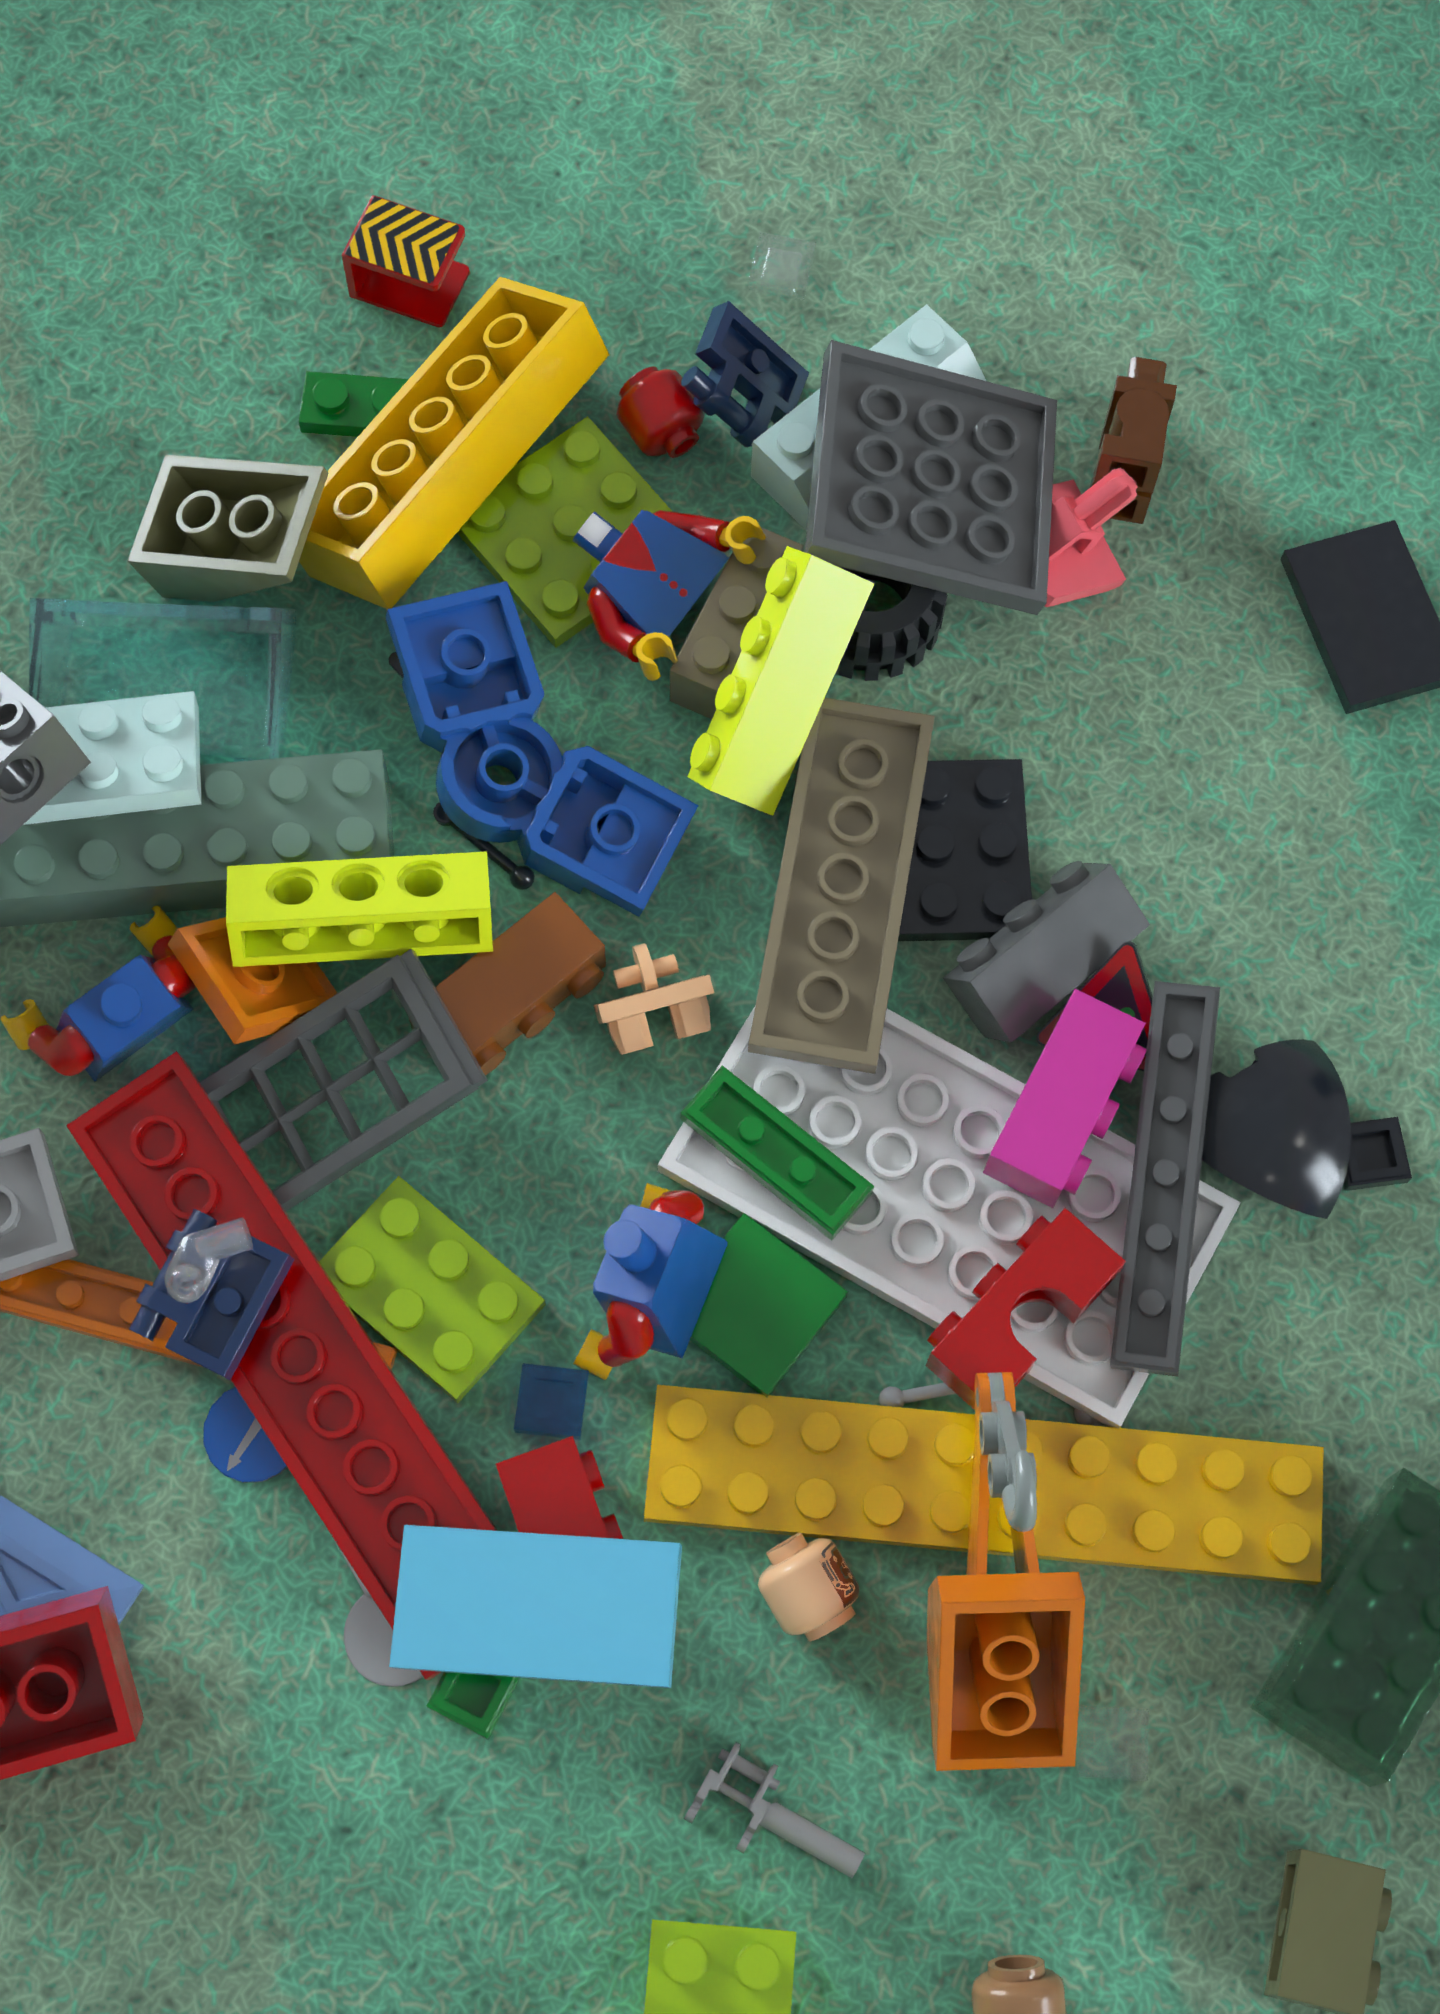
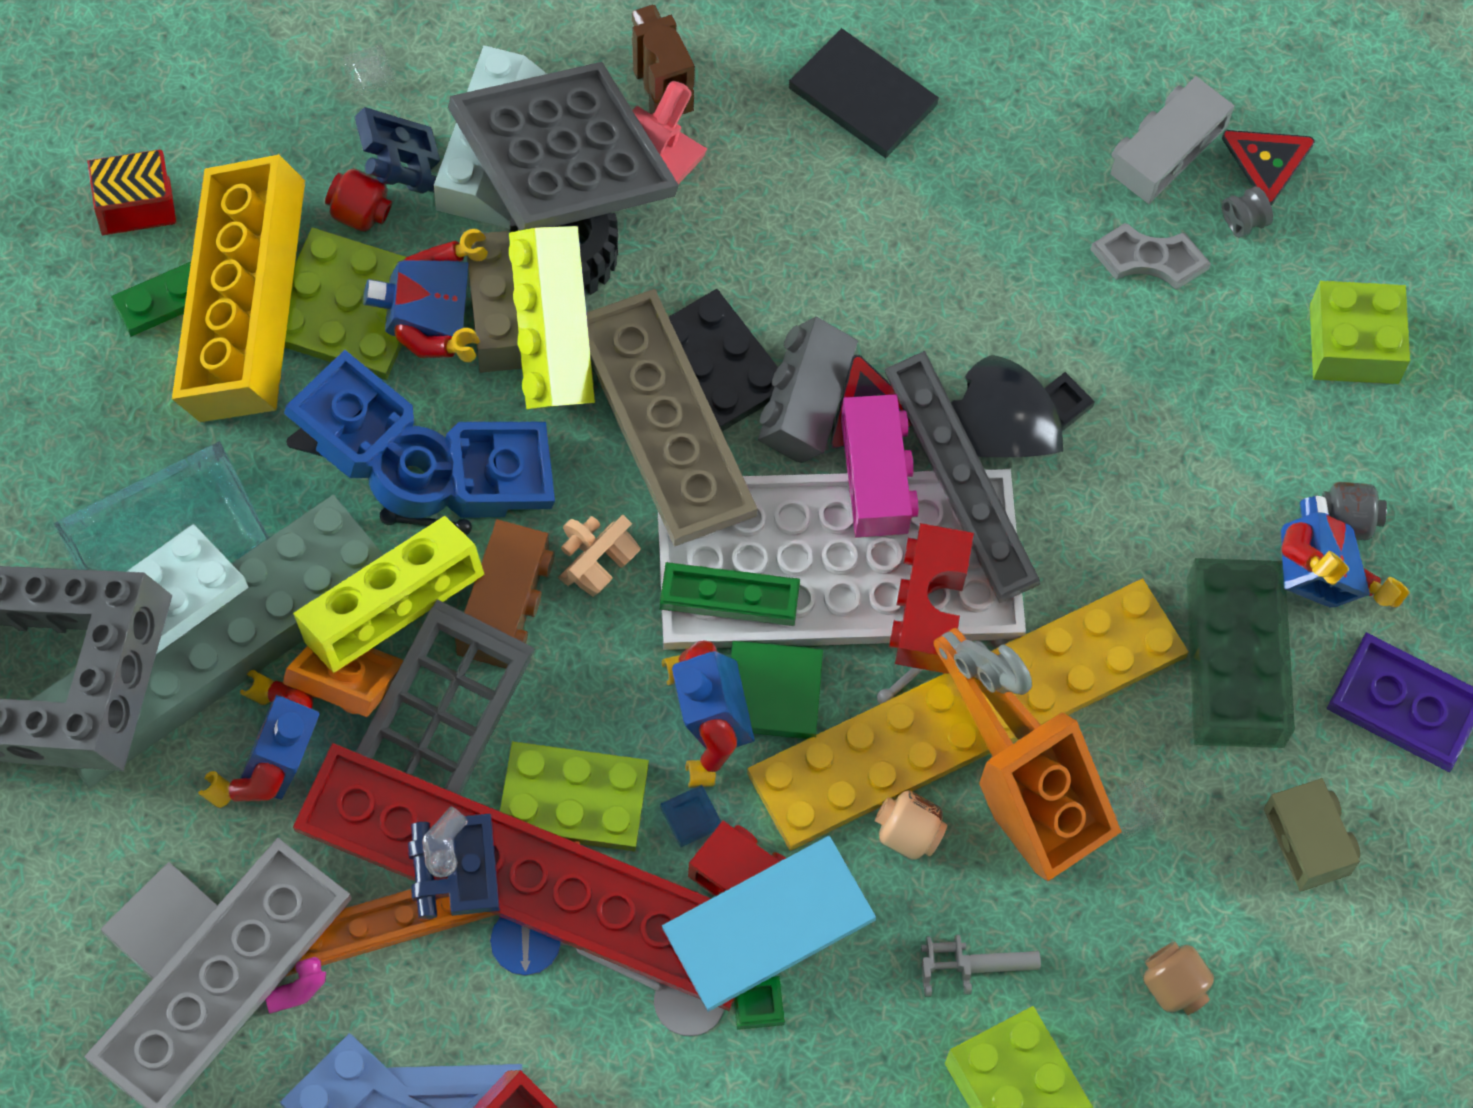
camera: 35 degrees left, 5 degrees down
(225, 526) = (141, 414): olive slope -> none

